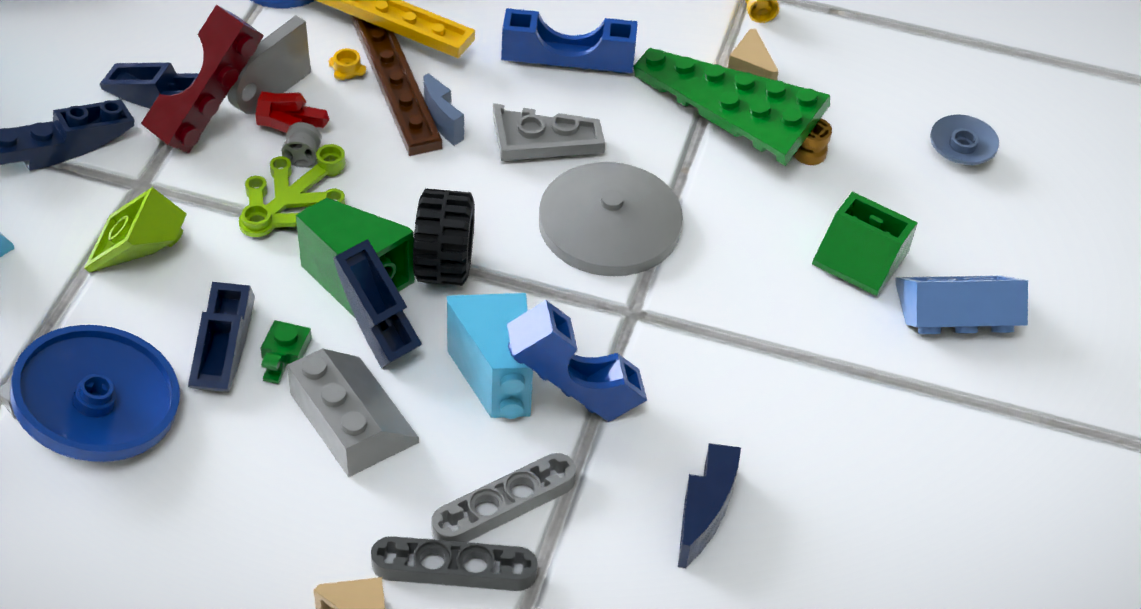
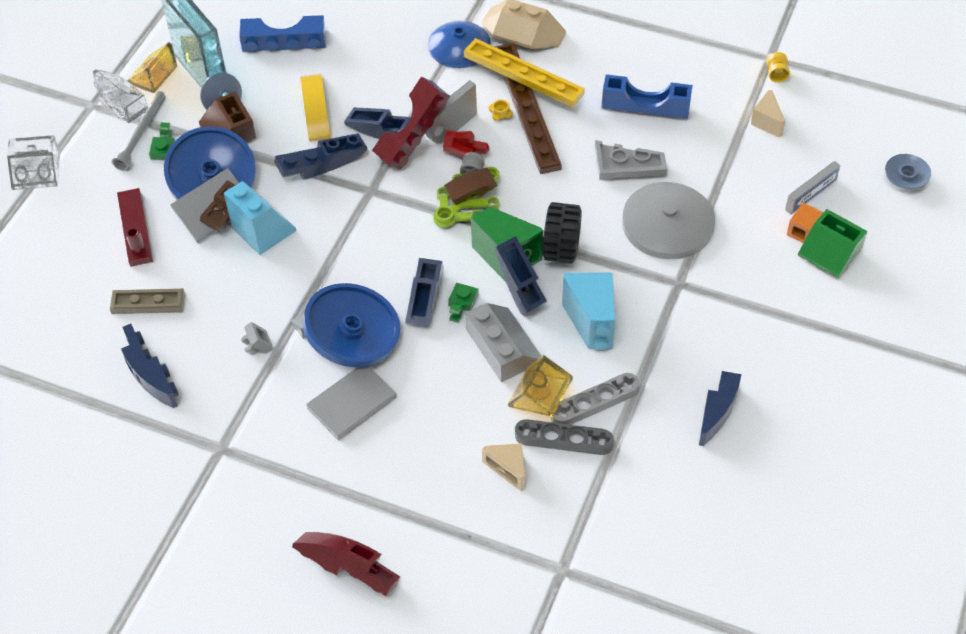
camera: 10 degrees right, 5 degrees up
(54, 64) = (315, 107): none -> yellow slope
(91, 519) = (351, 401): none -> light grey tile
(137, 231) = (371, 222): lime slope -> none
(307, 166) = (472, 183): none -> reddish brown slope
(415, 483) = (541, 387): none -> clear yellow slope
(445, 116) = (564, 149): sand blue slope -> none
(547, 345) = (624, 307): blue arch -> none
(741, 103) = (760, 144): green wing -> none
(815, 147) = (804, 169): pearl gold wheel -> none
(816, 215) = (802, 222): none -> orange brick
(826, 165) = (812, 187): none -> light grey tile
(963, 303) = (894, 284): medium blue slope -> none

